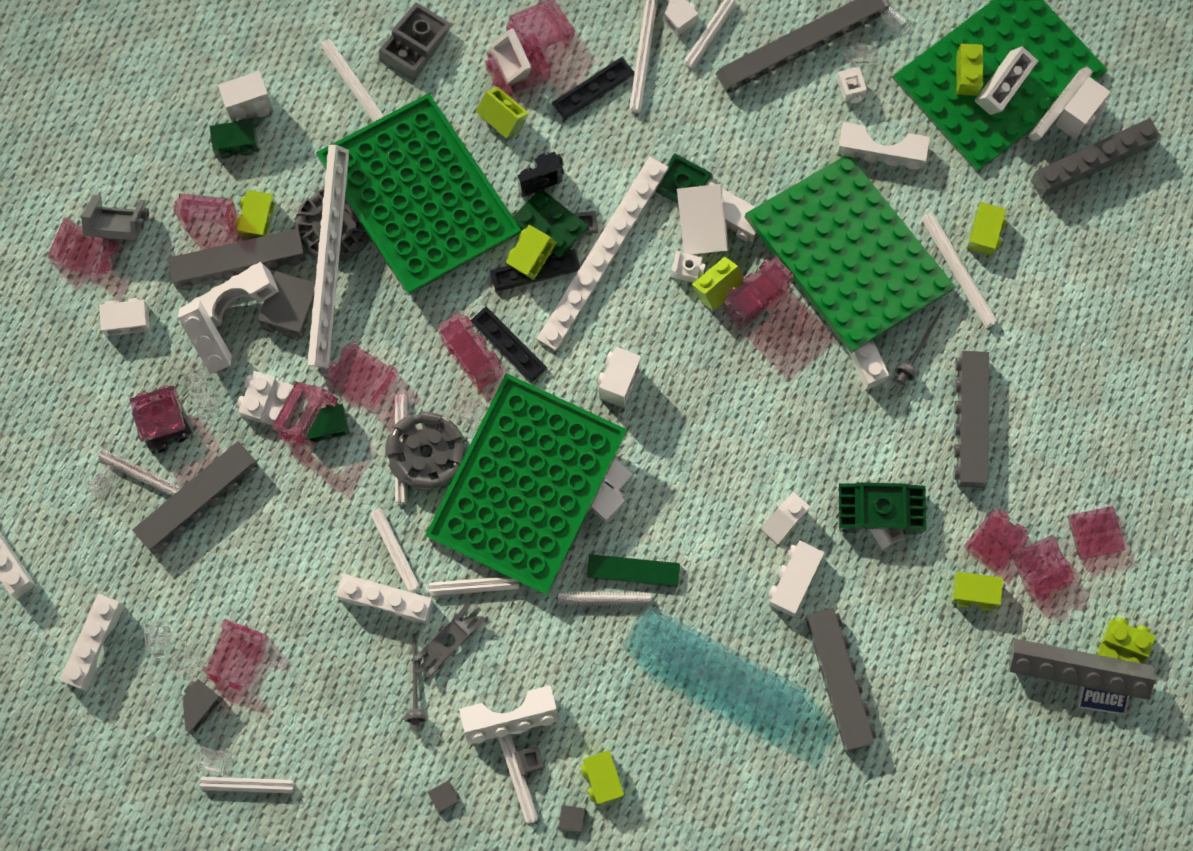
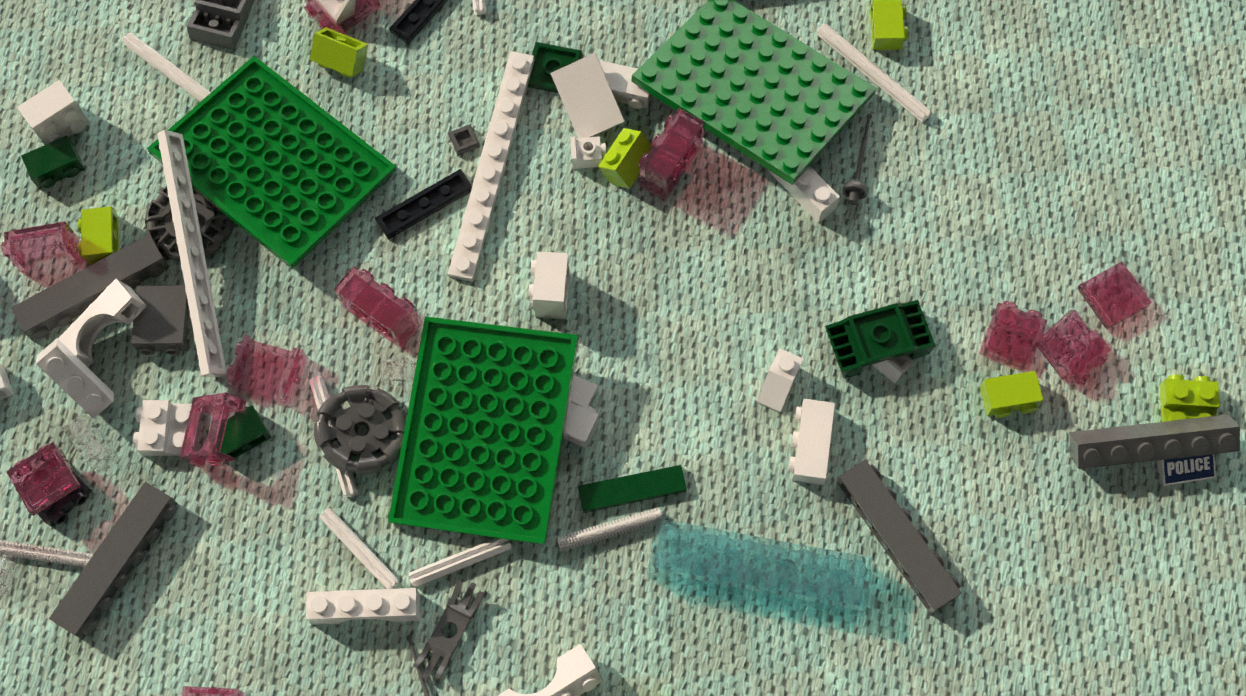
camera: 15 degrees left, 5 degrees down
(508, 344) = (419, 289): black tile -> none
(530, 252) = (413, 183): lime brick -> none
(547, 173) = (401, 103): black plate -> none
(553, 220) = (426, 150): dark green plate -> none
(972, 419) = (942, 218): dark grey brick -> none

